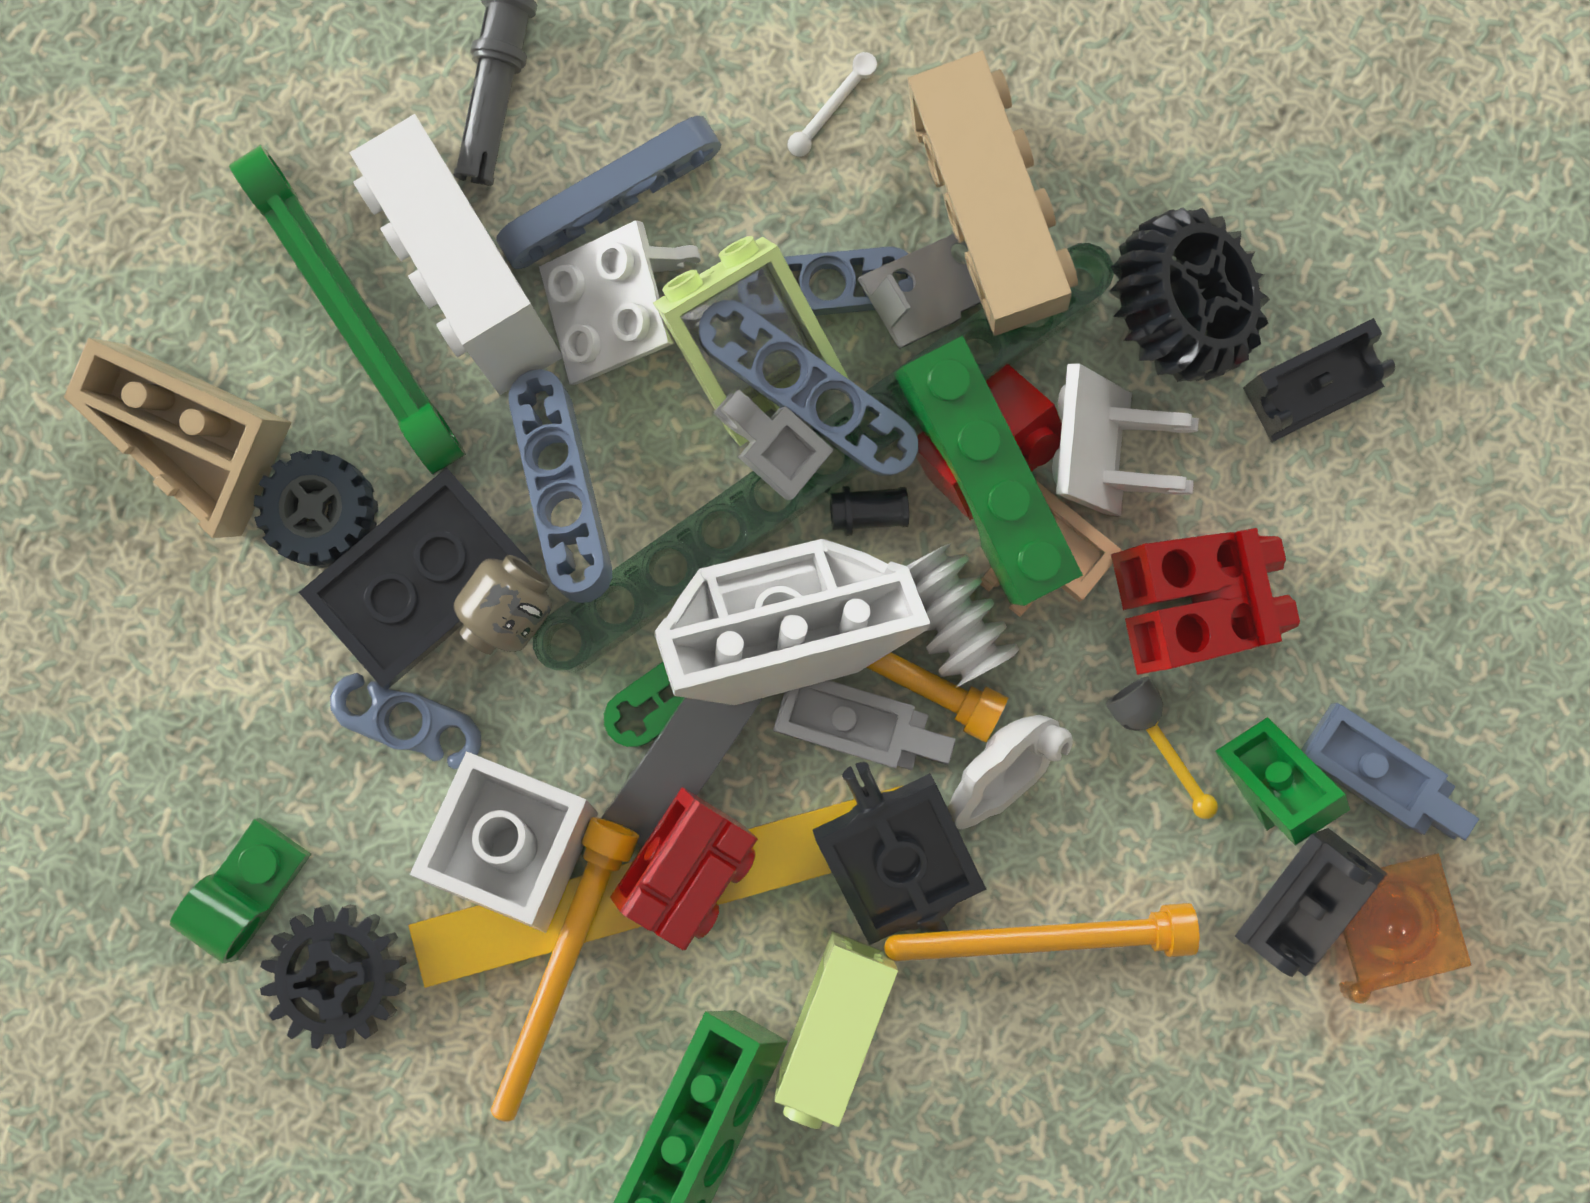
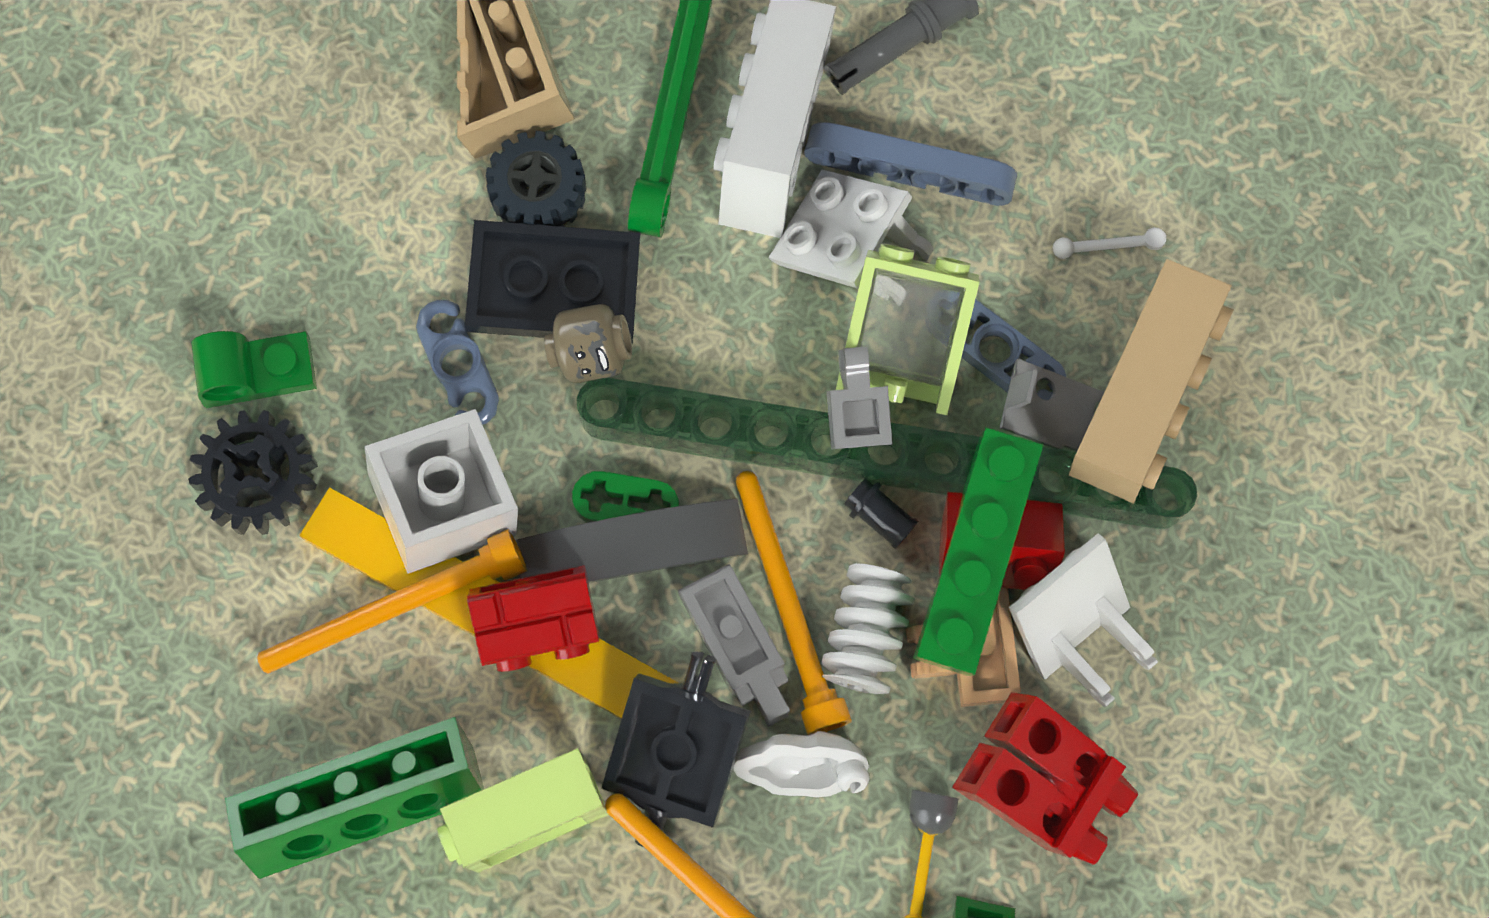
camera: 40 degrees right, 10 degrees down
(555, 485) = (702, 308): sand blue beam -> none
(786, 621) = (753, 524): white wedge -> none
(813, 380) = (918, 391): sand blue beam -> none
(1176, 301) = (1210, 565): black gear -> none
(1319, 381) = (1266, 717): black hinge -> none

